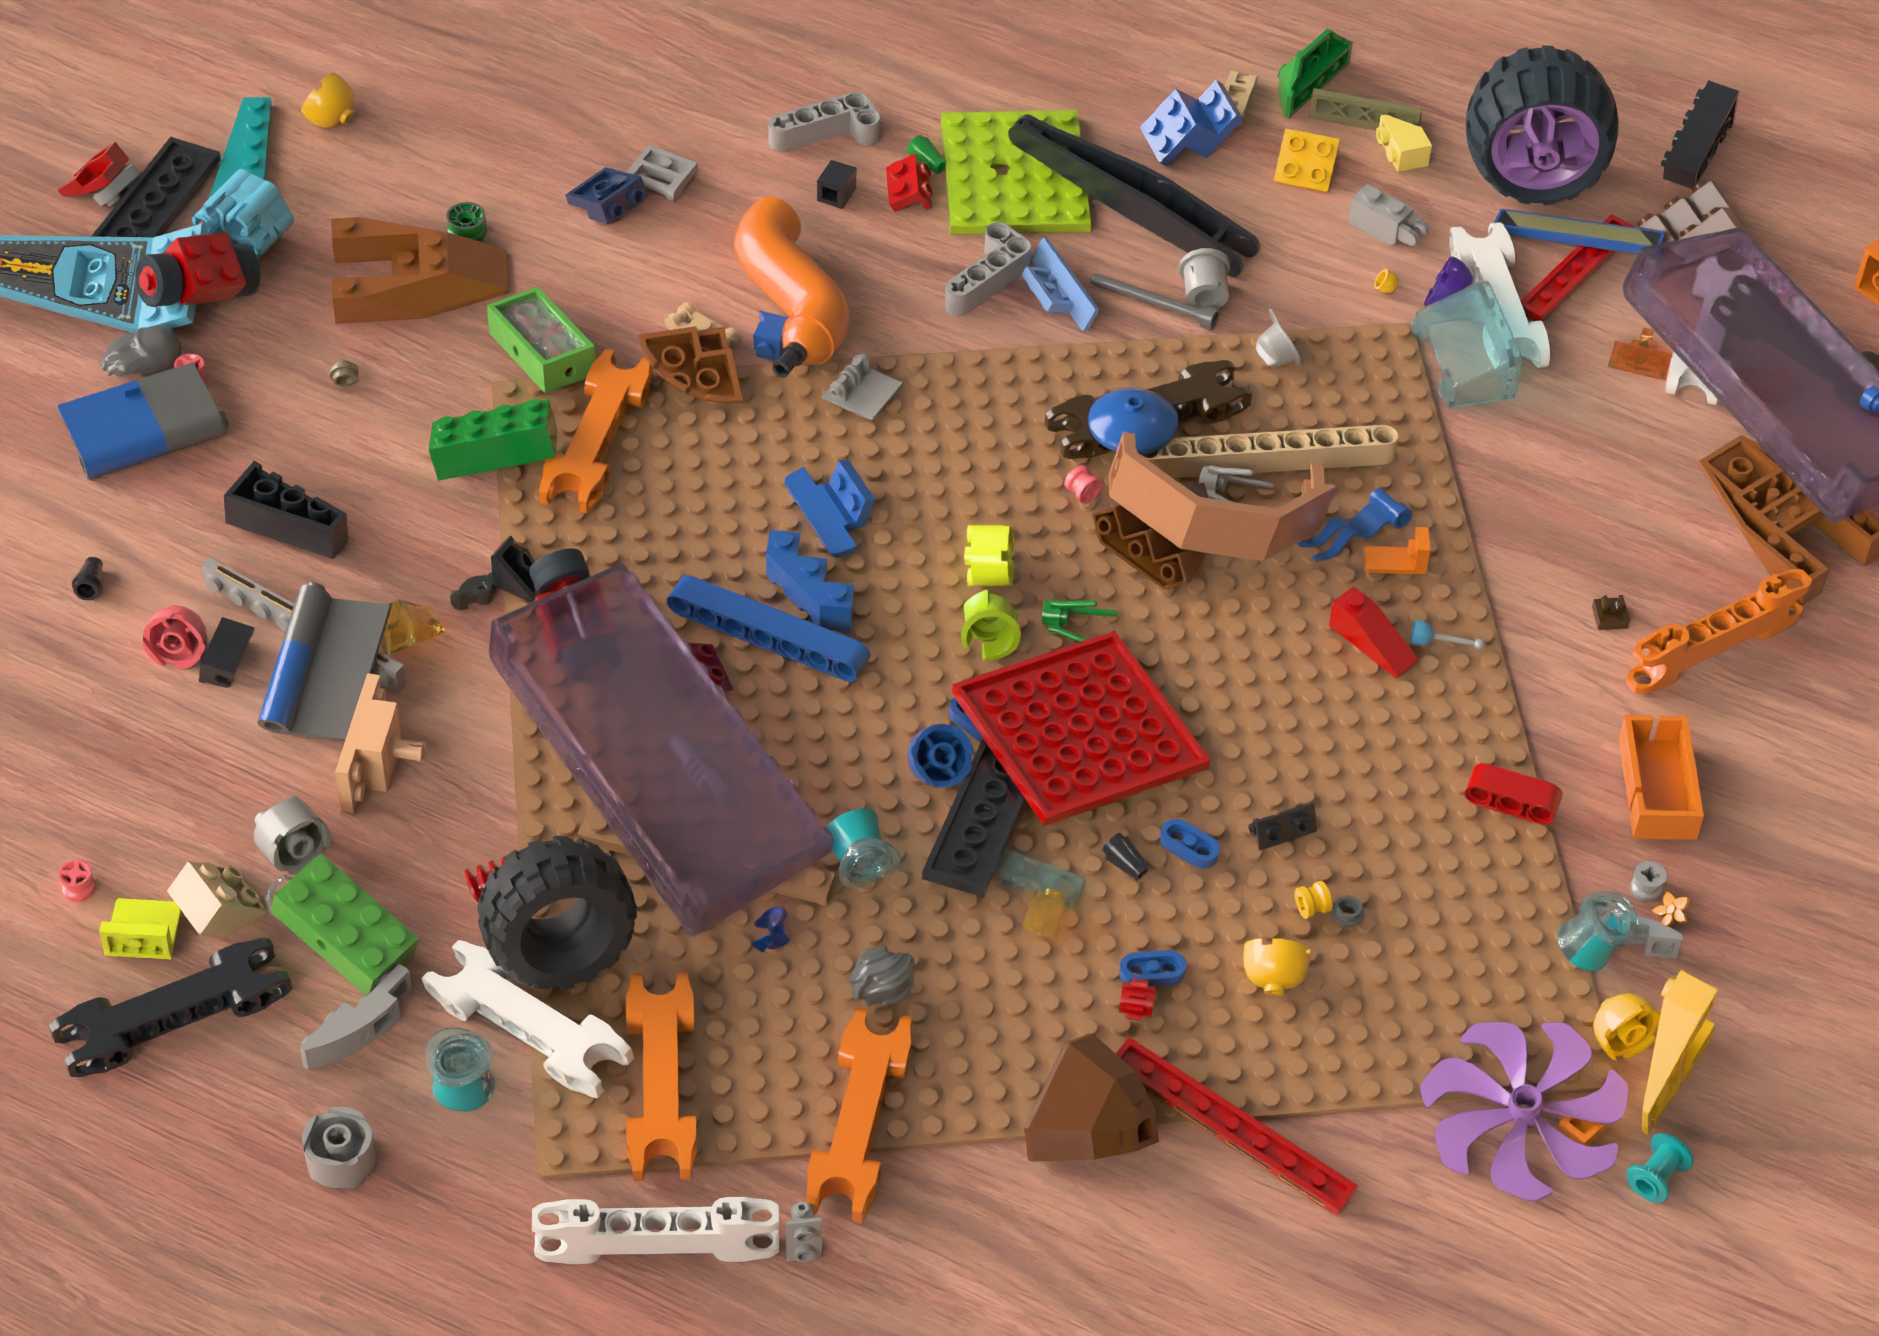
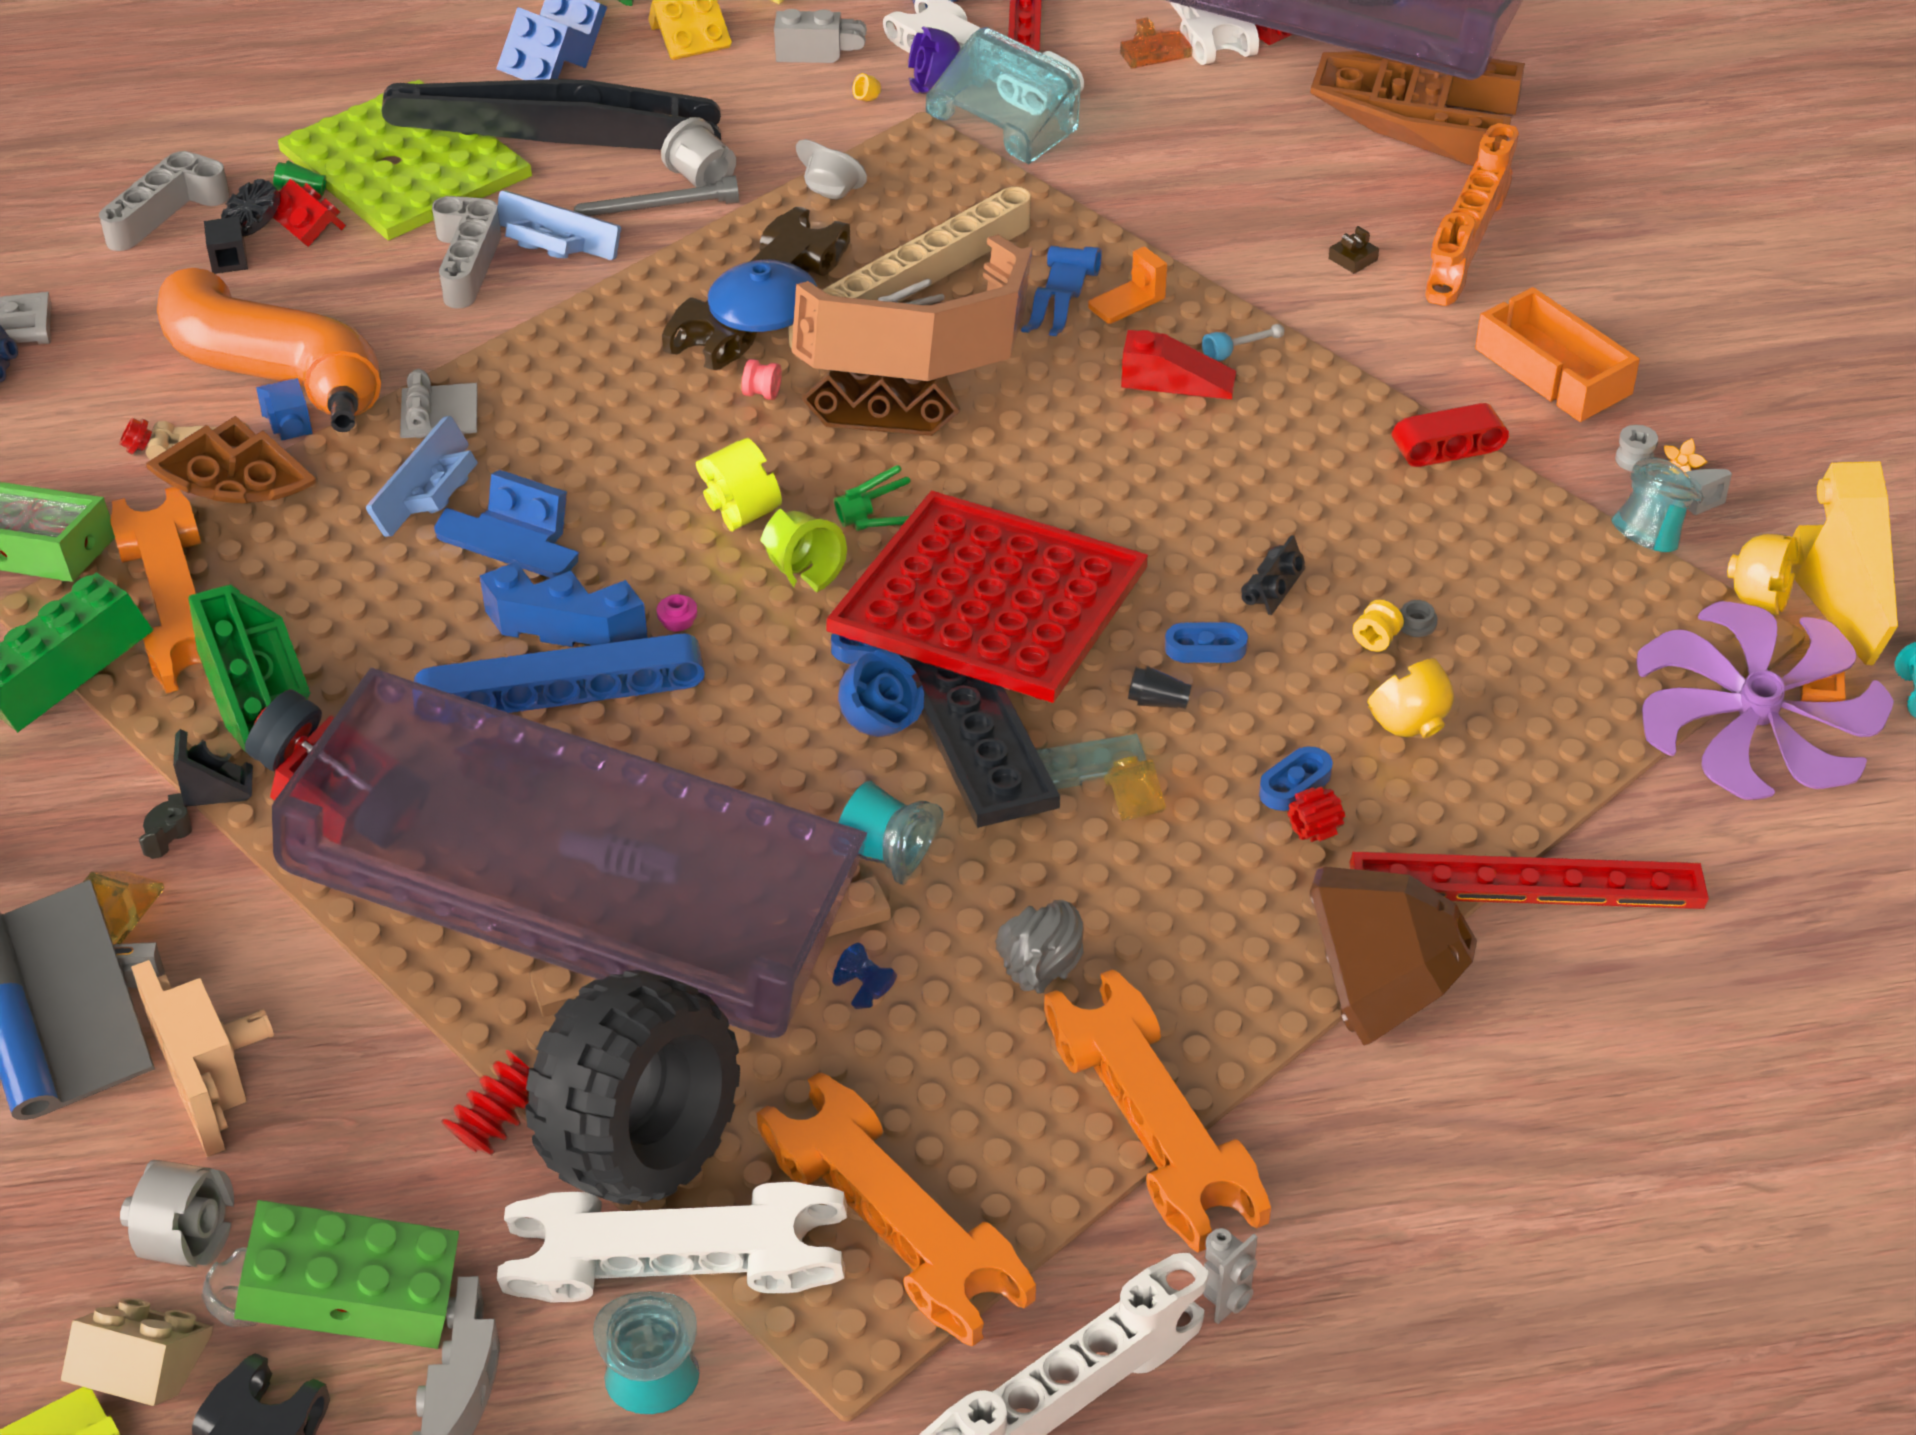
camera: 35 degrees left, 5 degrees down
(590, 509) = (243, 655): none -> green wedge
(666, 304) = (135, 435): none -> red plate
(808, 437) = (424, 478): none -> medium blue bracket
(876, 162) = (254, 205): none -> black wheel
(880, 624) = (677, 612): none -> dark pink plate

